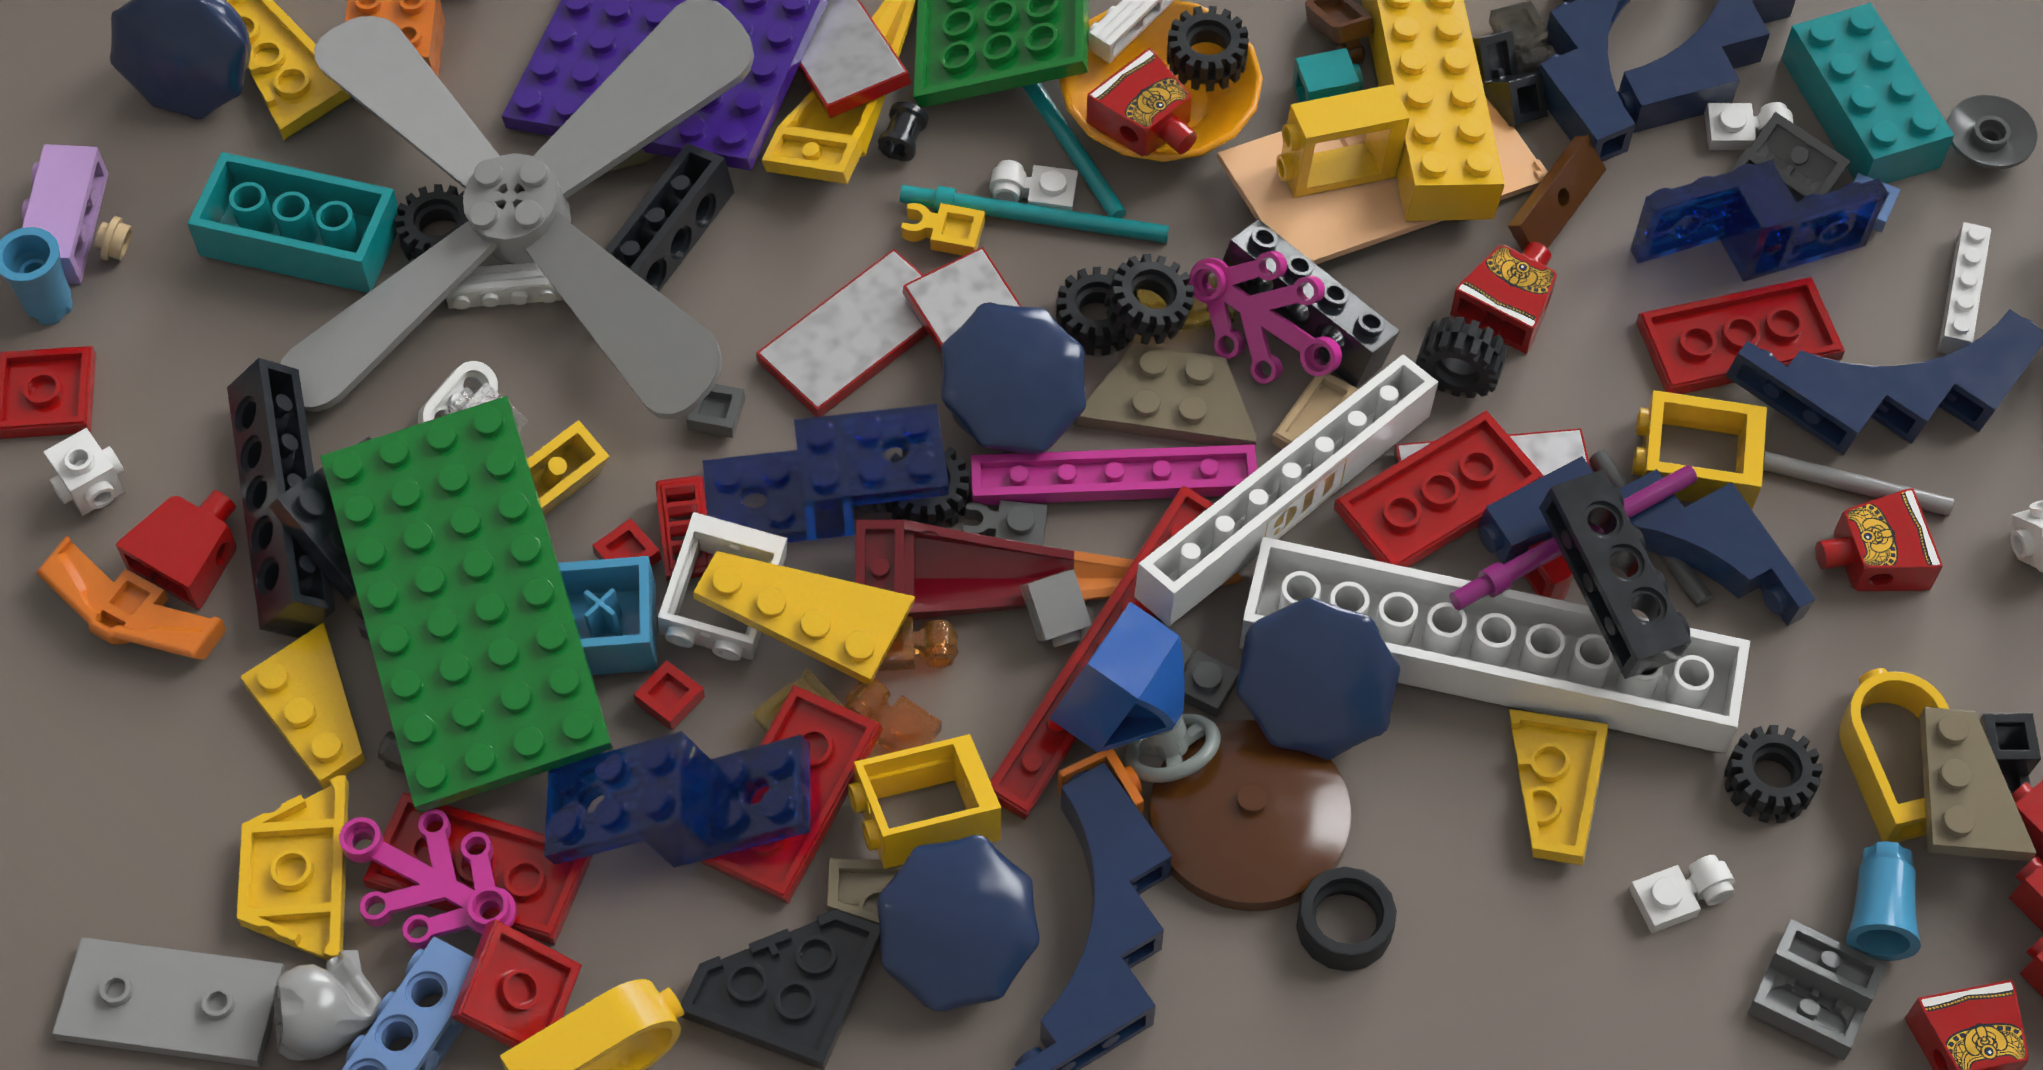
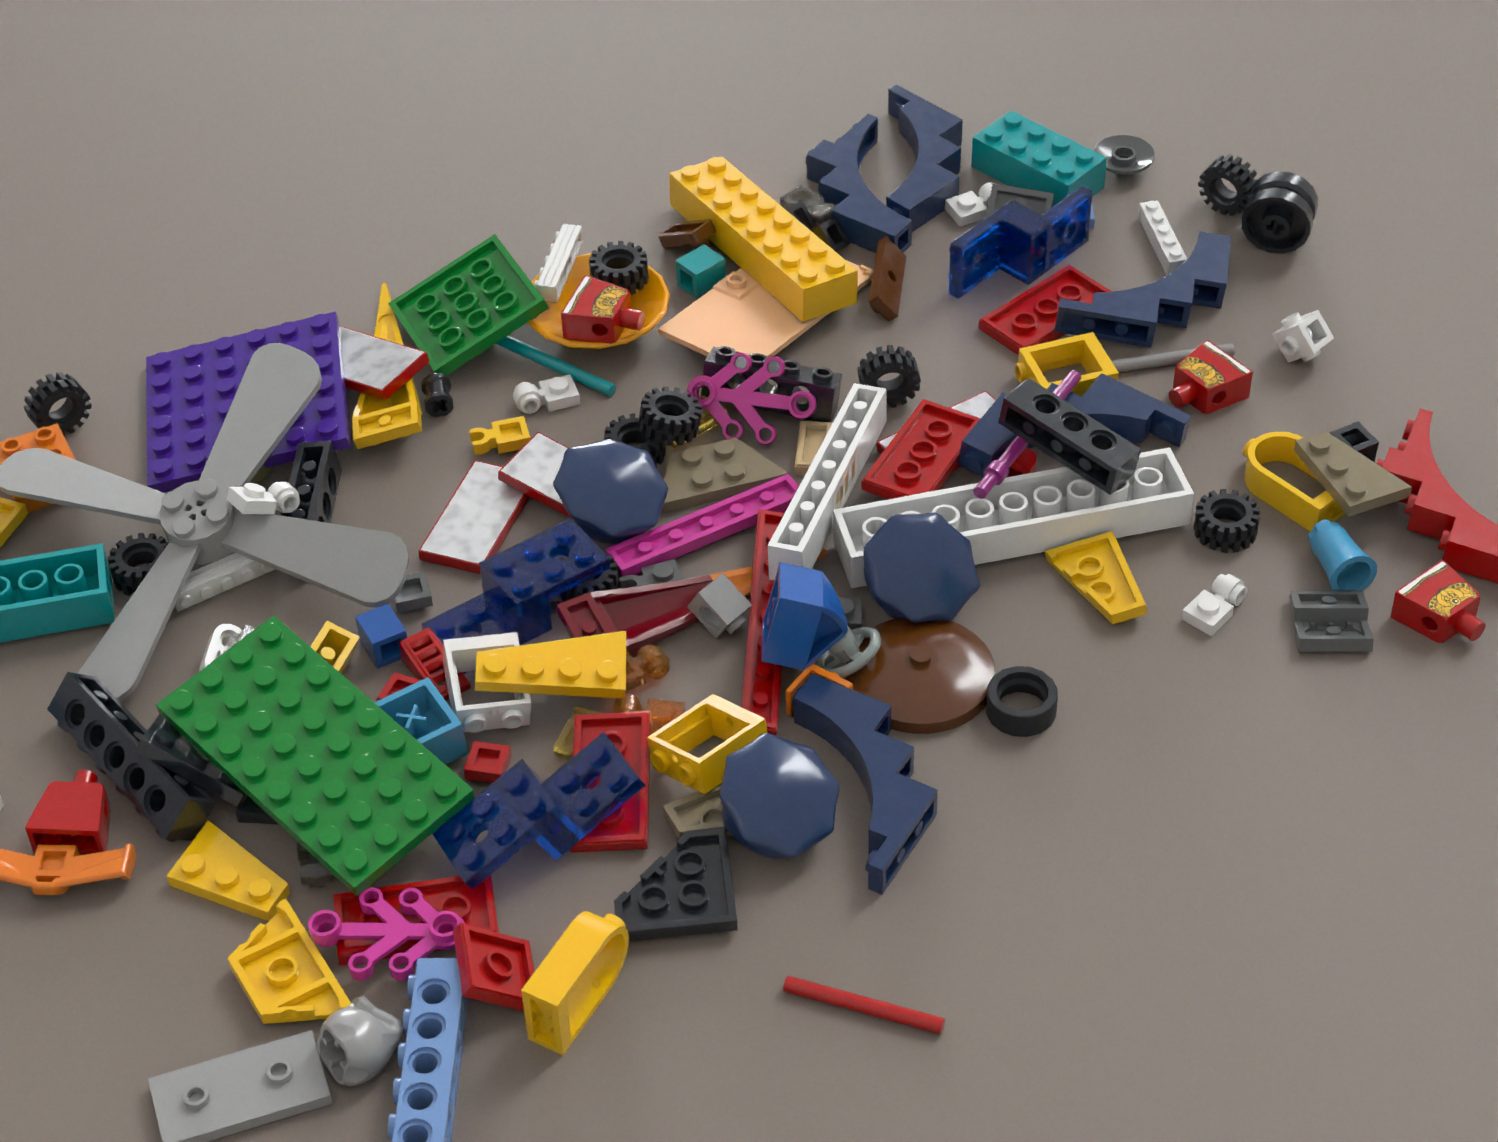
camera: 25 degrees left, 15 degrees down
(581, 217) = (255, 500): none -> white plate
(646, 456) = (380, 635): none -> blue brick
(1036, 214) = (559, 408): teal bar -> none
(1370, 112) = (761, 264): yellow window -> none
(1508, 294) = (896, 328): red torso -> none

